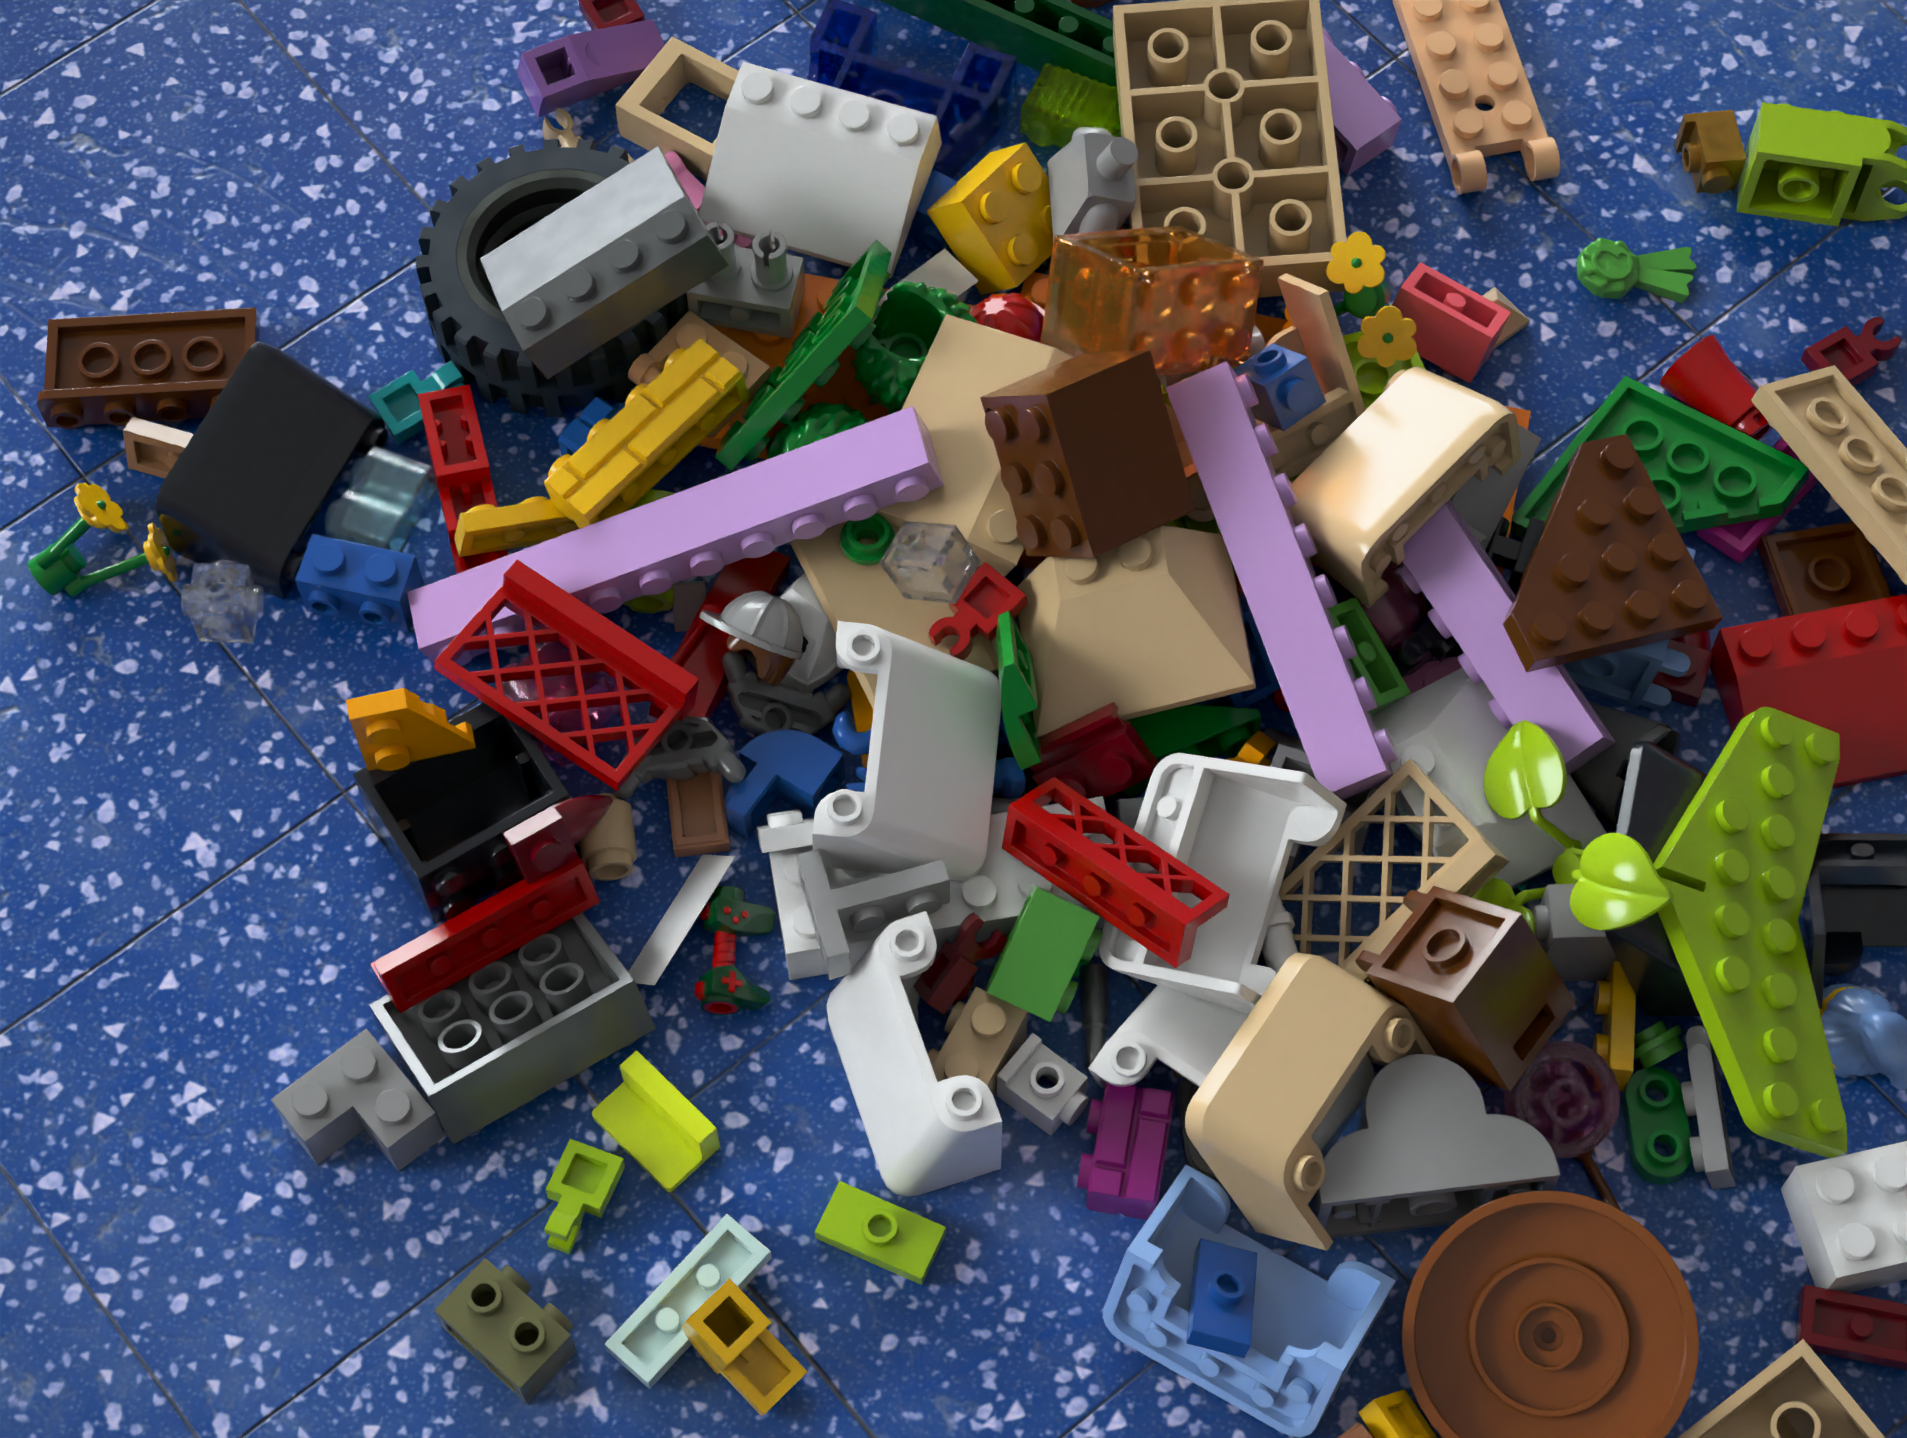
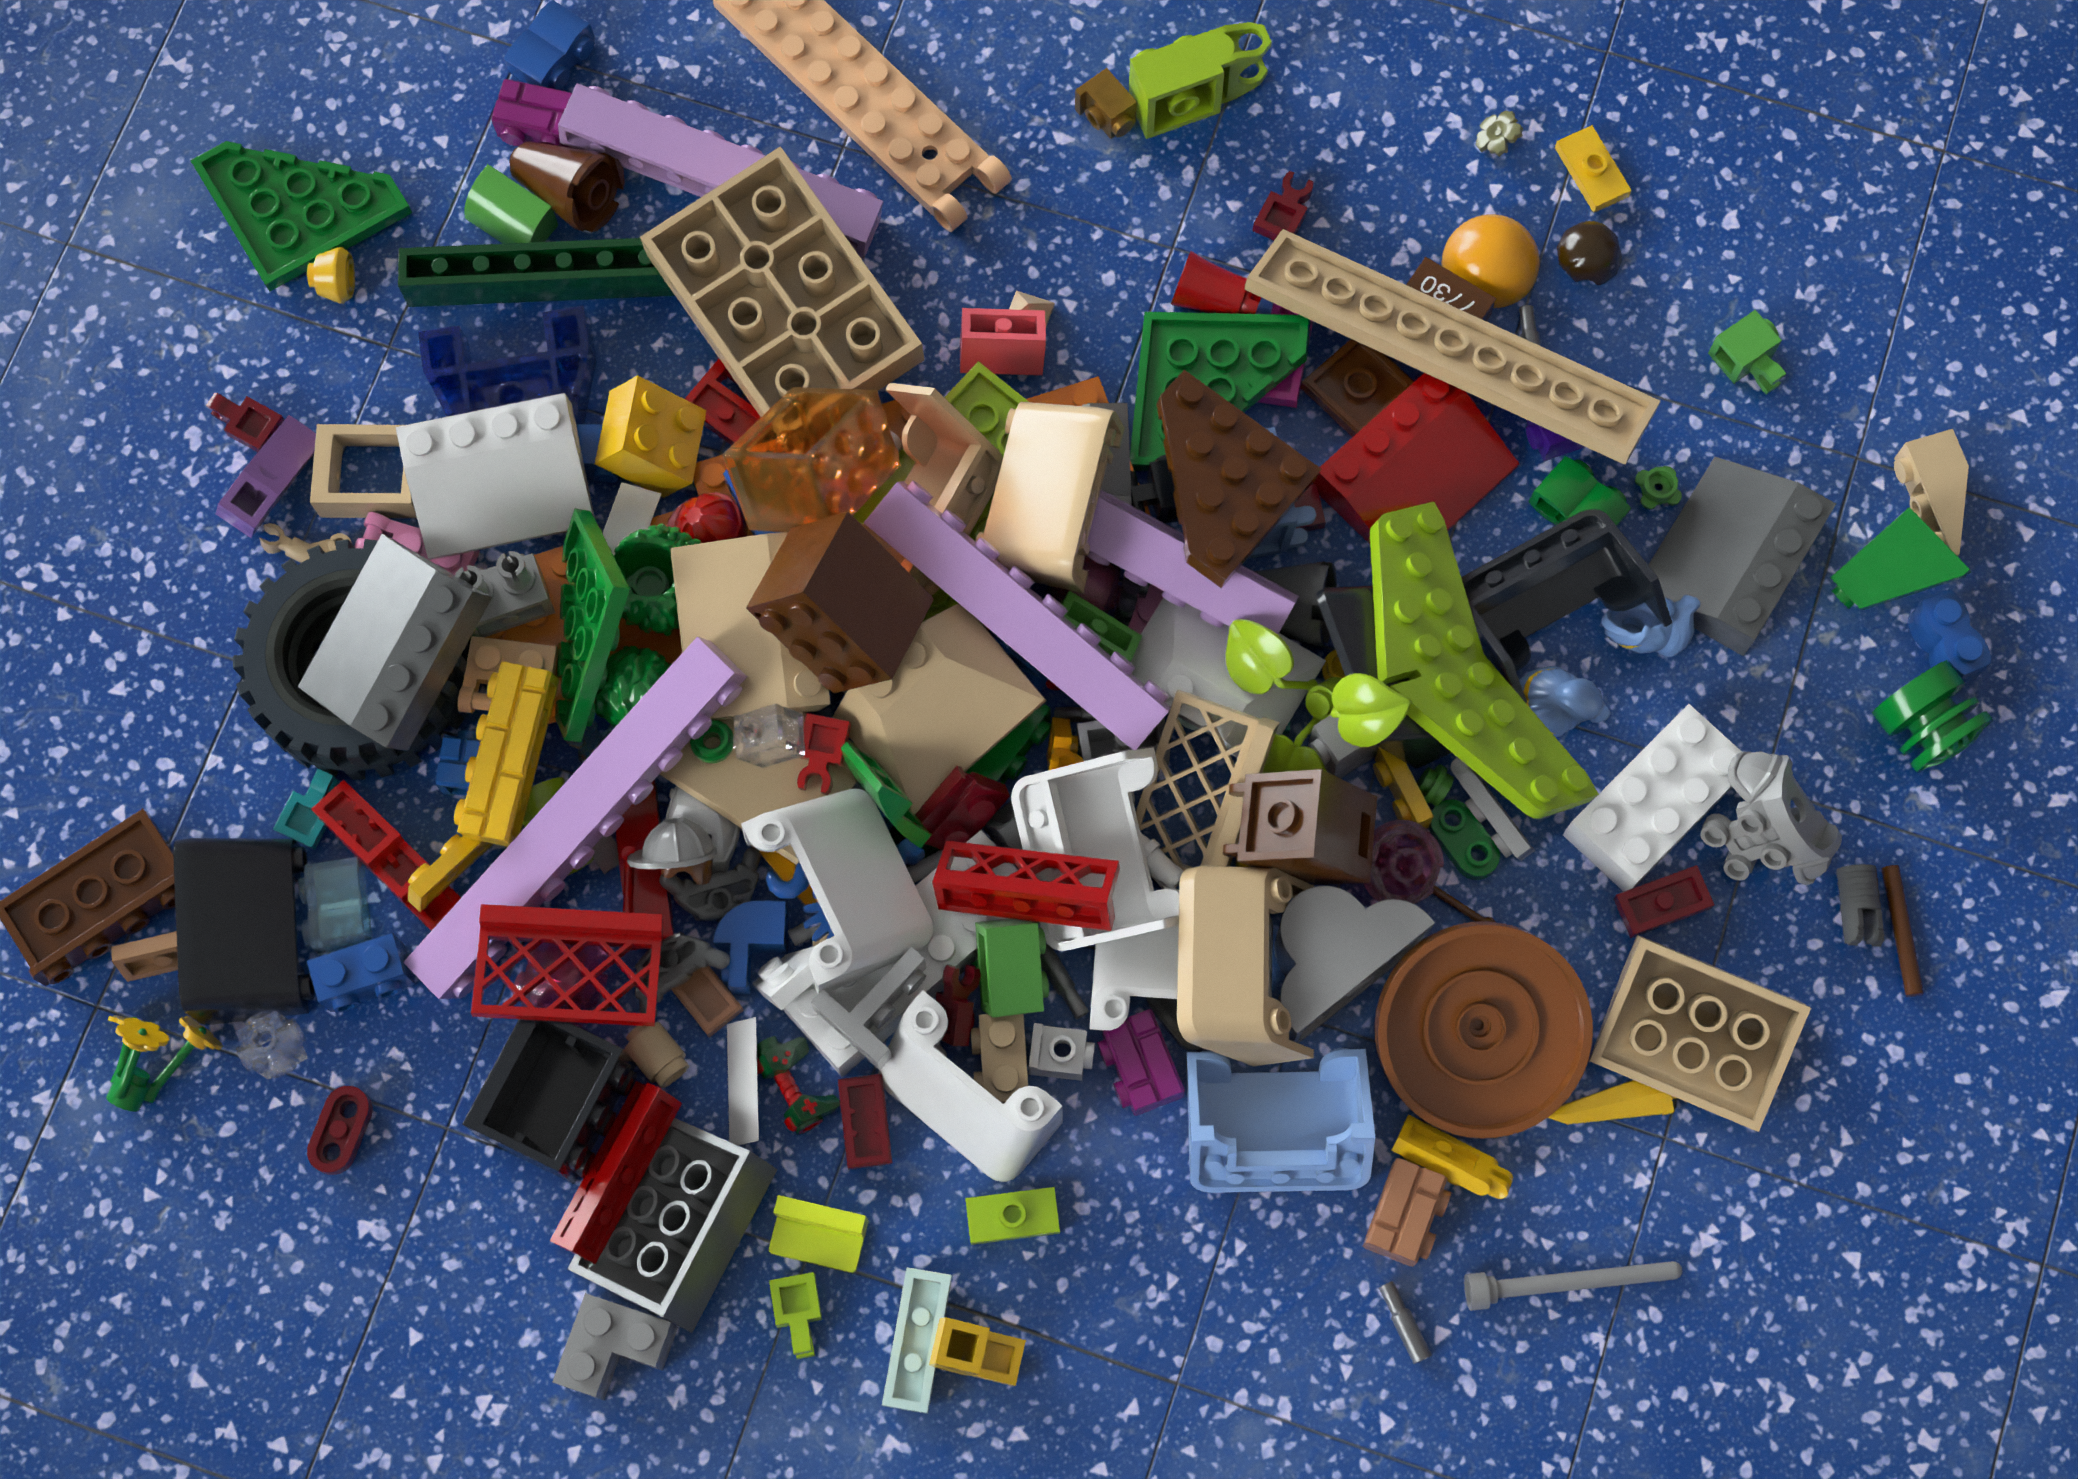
camera: 30 degrees left, 10 degrees up
(231, 726) = (335, 1129): none -> dark red plate
(401, 729) = (478, 1081): light orange wing -> none
(507, 1328) = (810, 1434): olive brick -> none
(550, 836) = (628, 1089): dark red plate -> none
(782, 1036) = (865, 1121): none -> dark red plate
(1066, 102) = (646, 322): clear neon green brick -> none
(1092, 182) = (708, 387): light grey torso -> none
(1222, 1298) = (1263, 1128): blue plate -> none
(1283, 386) = (933, 467): blue brick -> none
(1367, 295) = (940, 357): yellow plant -> none
(1613, 270) = (1089, 234): bright green piece -> none

